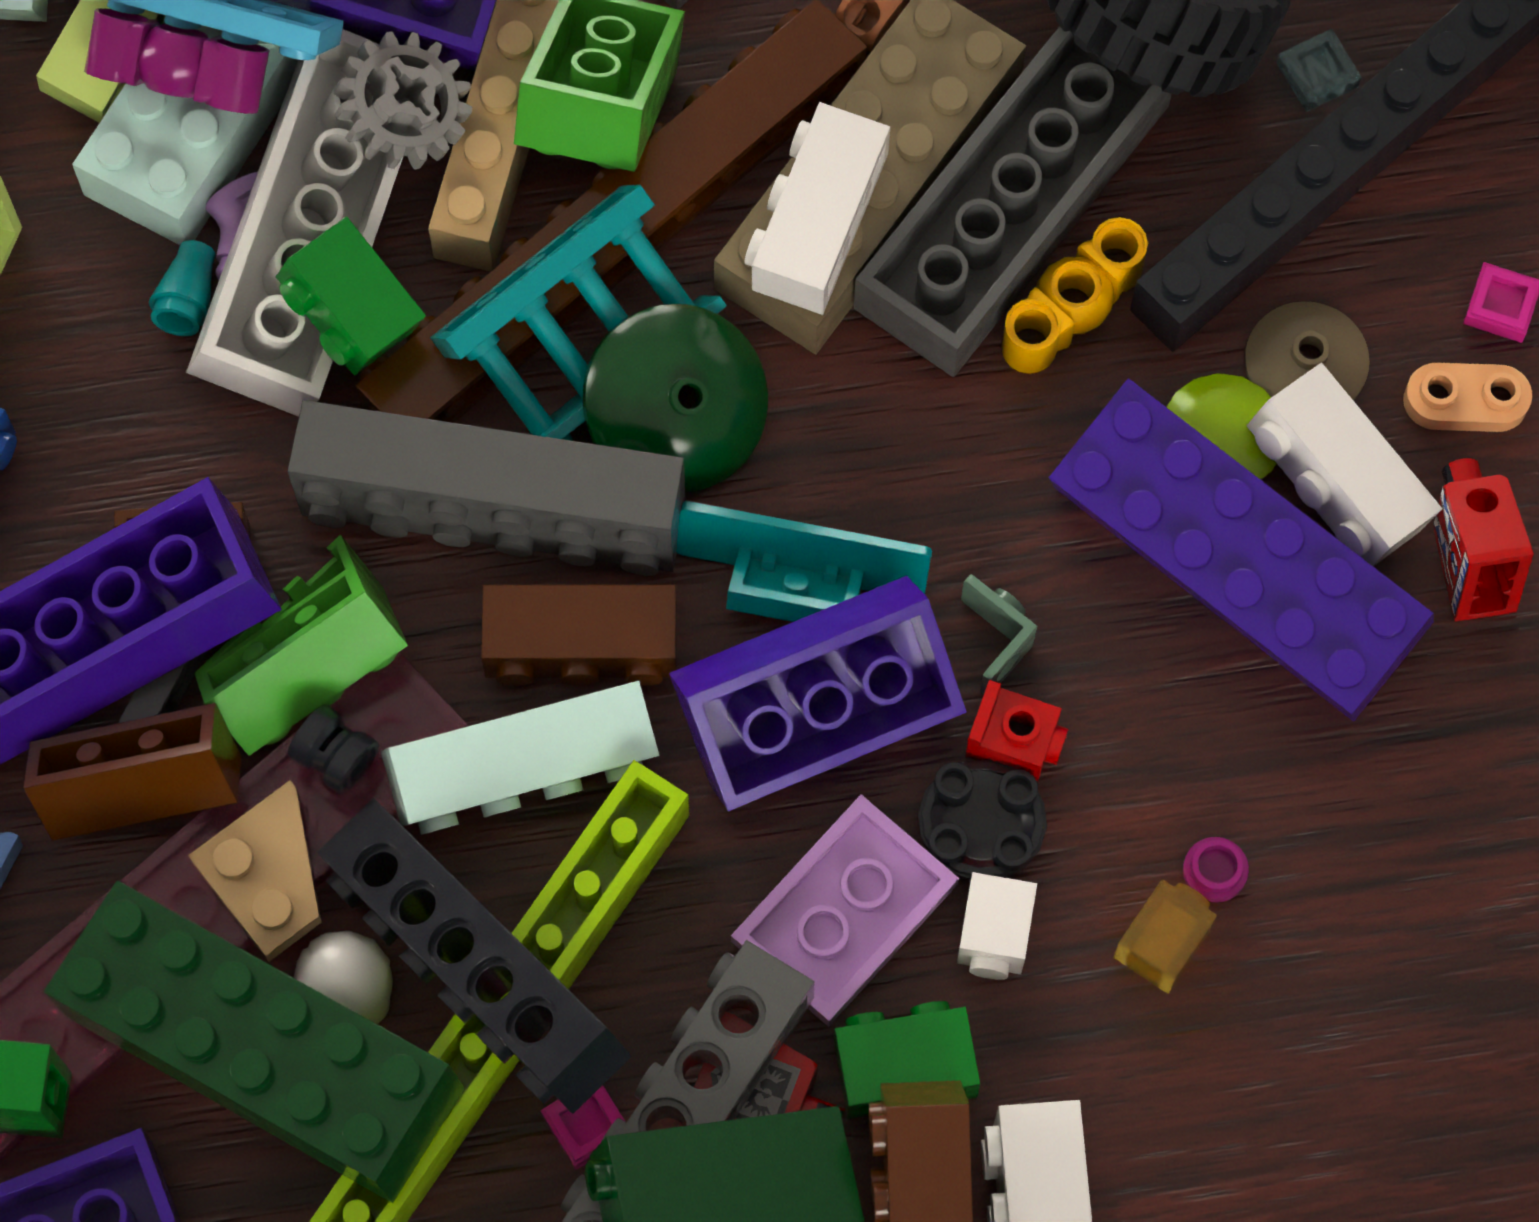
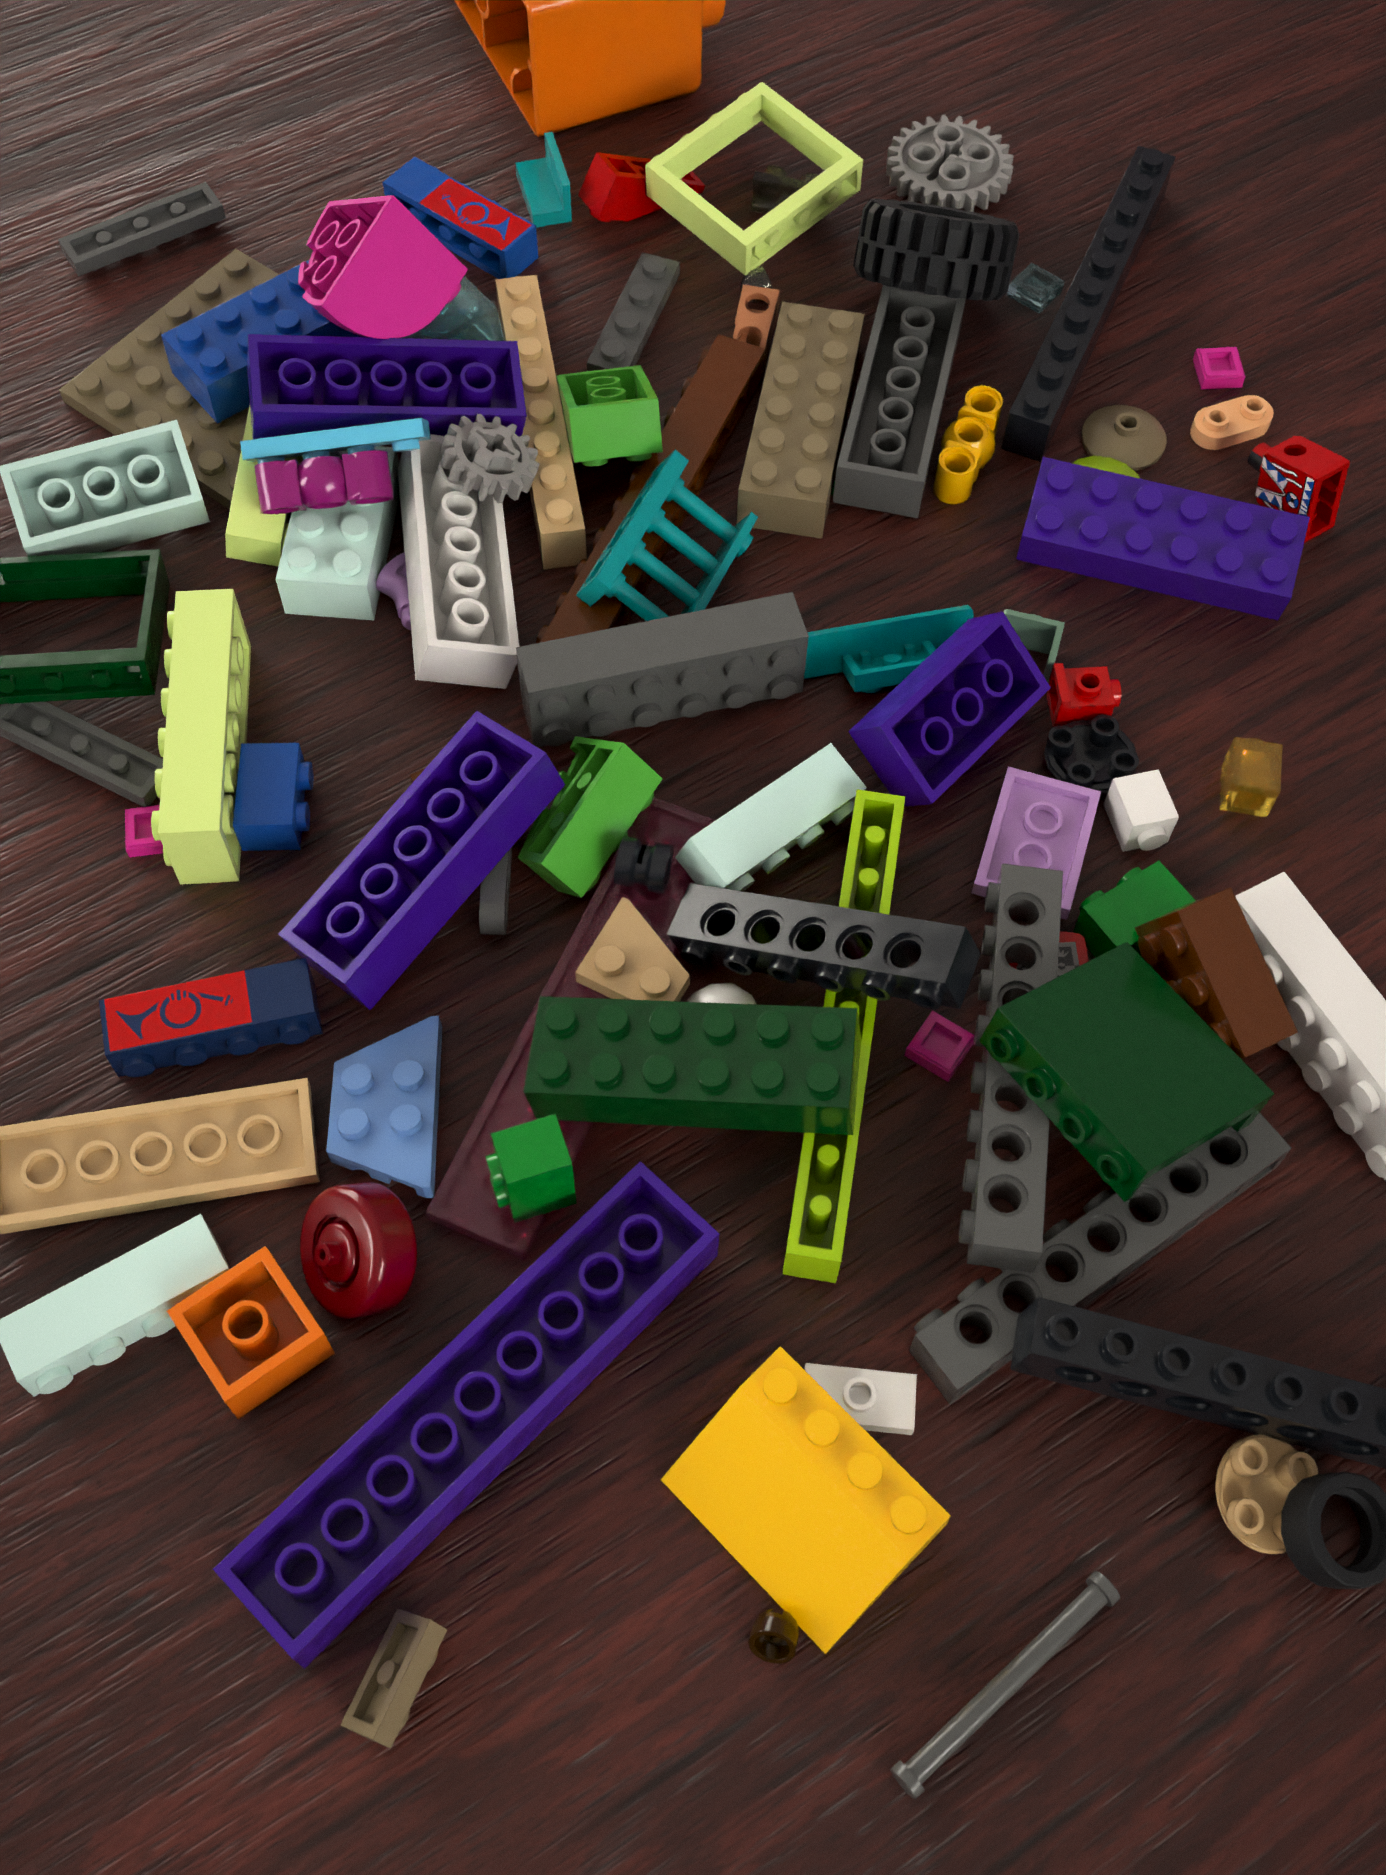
camera: 25 degrees left, 10 degrees down
(133, 772) = (508, 933): reddish brown brick -> none
(184, 291) = (387, 641): teal cone -> none
(348, 296) = (513, 580): green brick -> none
(579, 633) = (764, 740): reddish brown brick -> none
(637, 380) = (731, 569): dark green dish -> none
(818, 207) = (795, 427): white brick -> none
(1216, 868) = (1254, 723): magenta plate -> none
(1343, 466) = (1188, 463): white brick -> none

